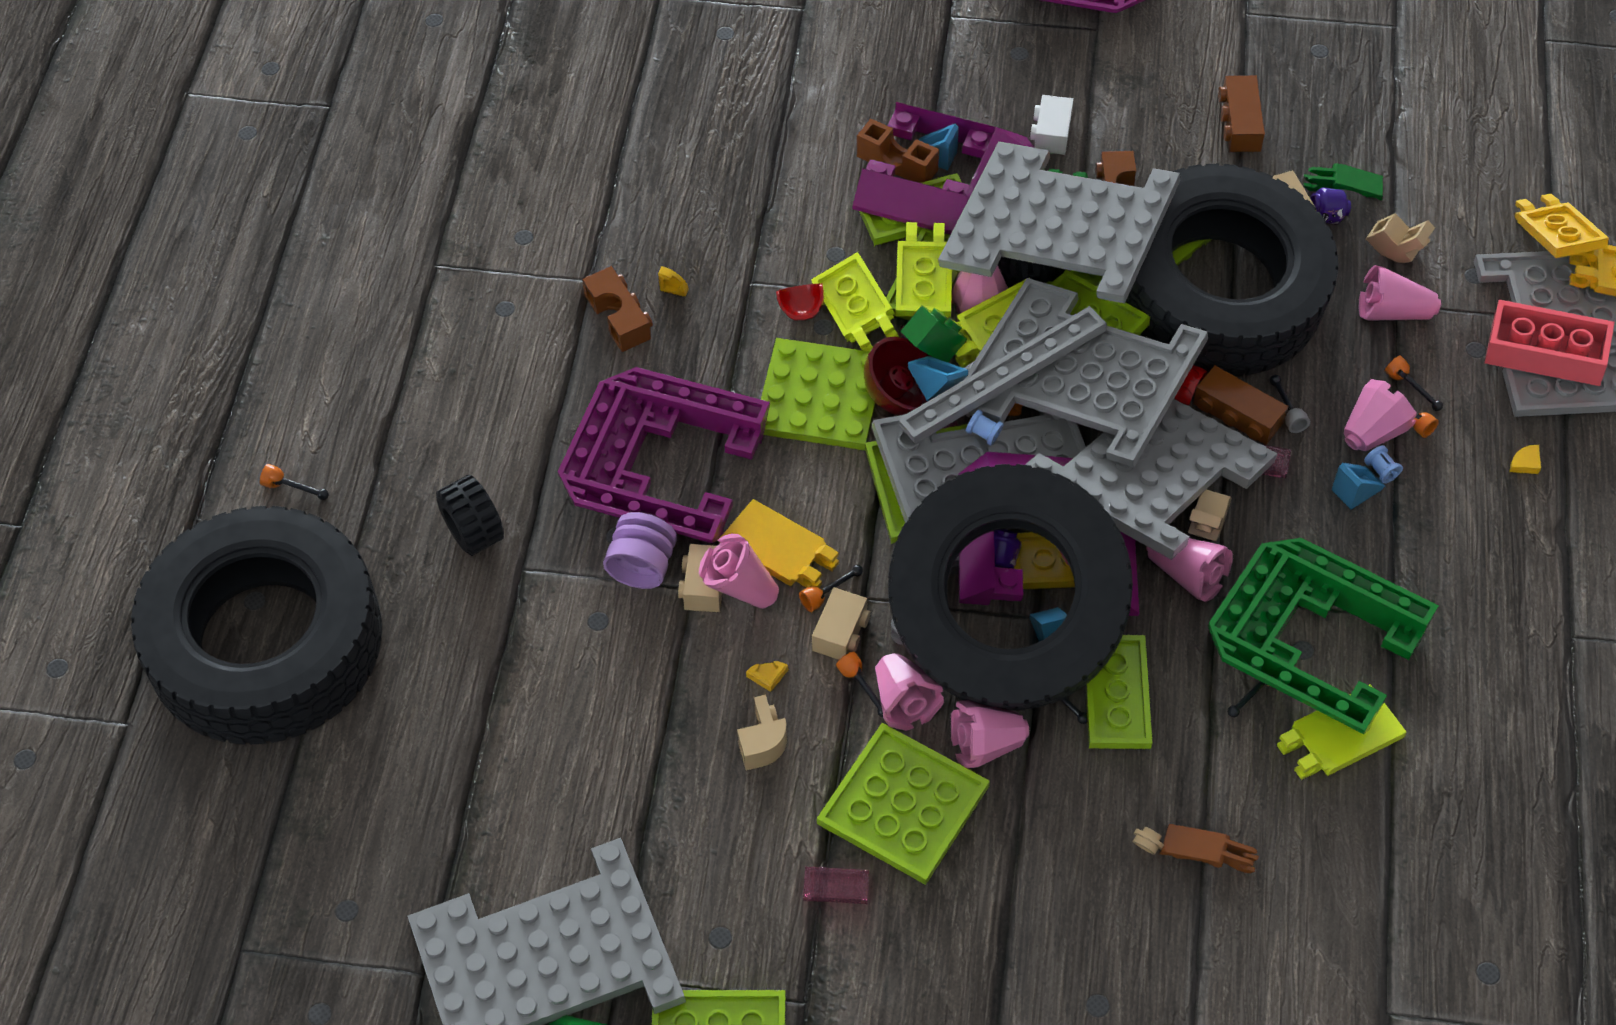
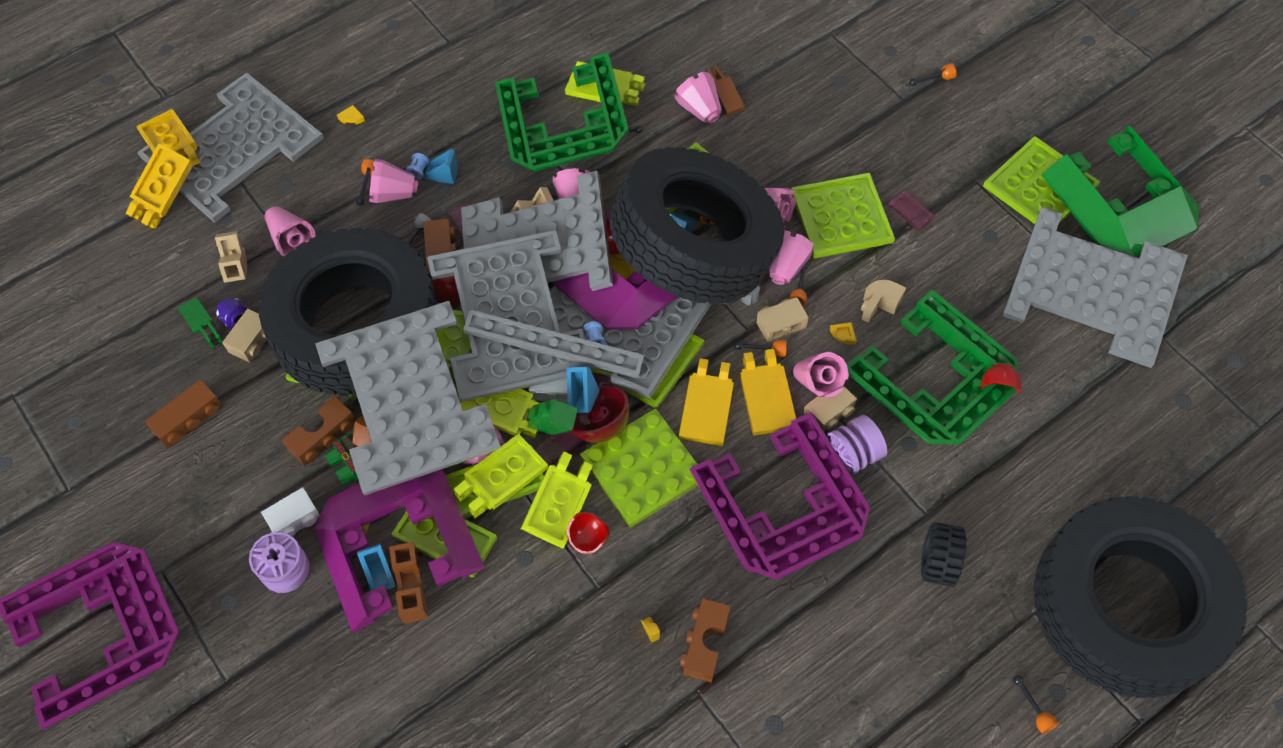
camera: 135 degrees left, 5 degrees up
(549, 719) = (1002, 374): none -> red helmet
(569, 685) = (967, 404): none -> green slope
(823, 490) = (707, 405): none -> yellow tile
(1011, 86) = (287, 571): none -> lavender wheel
(1148, 840) = (747, 111): tan plate -> none
(1210, 798) = (700, 97): none -> bright pink cone
(1399, 370) = (342, 202): hinge -> none
(1549, 342) = (263, 136): coral brick -> none

